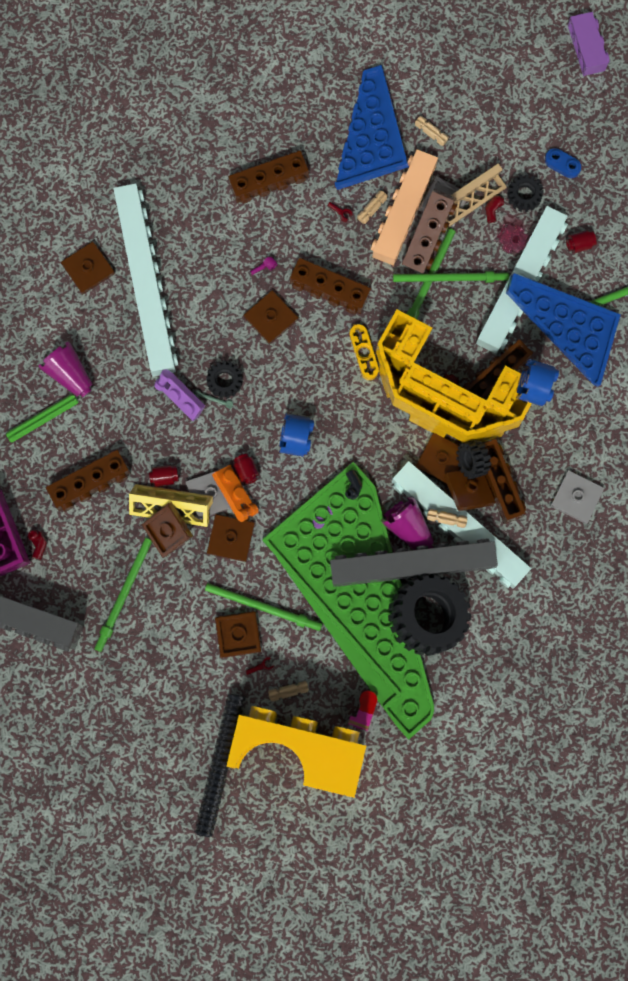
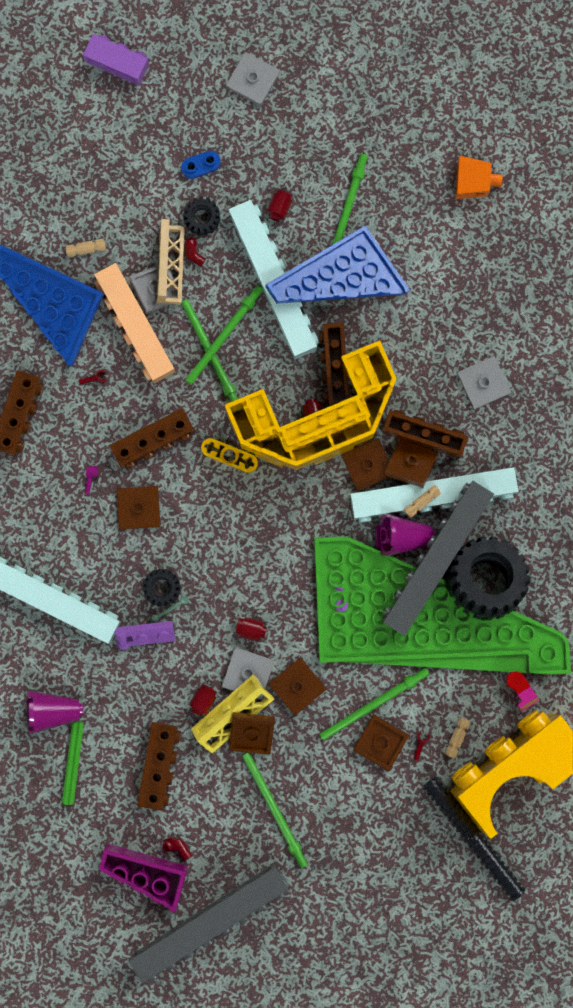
camera: 50 degrees left, 5 degrees up
(235, 493) = (264, 654): orange plate -> none
(295, 435) = (256, 567): blue brick -> none
(355, 485) = (336, 552): black arm -> none
(372, 207) = (111, 349): tan axle -> none
(429, 230) = (174, 322): reddish brown brick -> none
(473, 459) = (392, 441): black tyre -> none
(505, 237) = (232, 259): clear pink brick -> none
(537, 383) = (379, 344): blue brick -> none

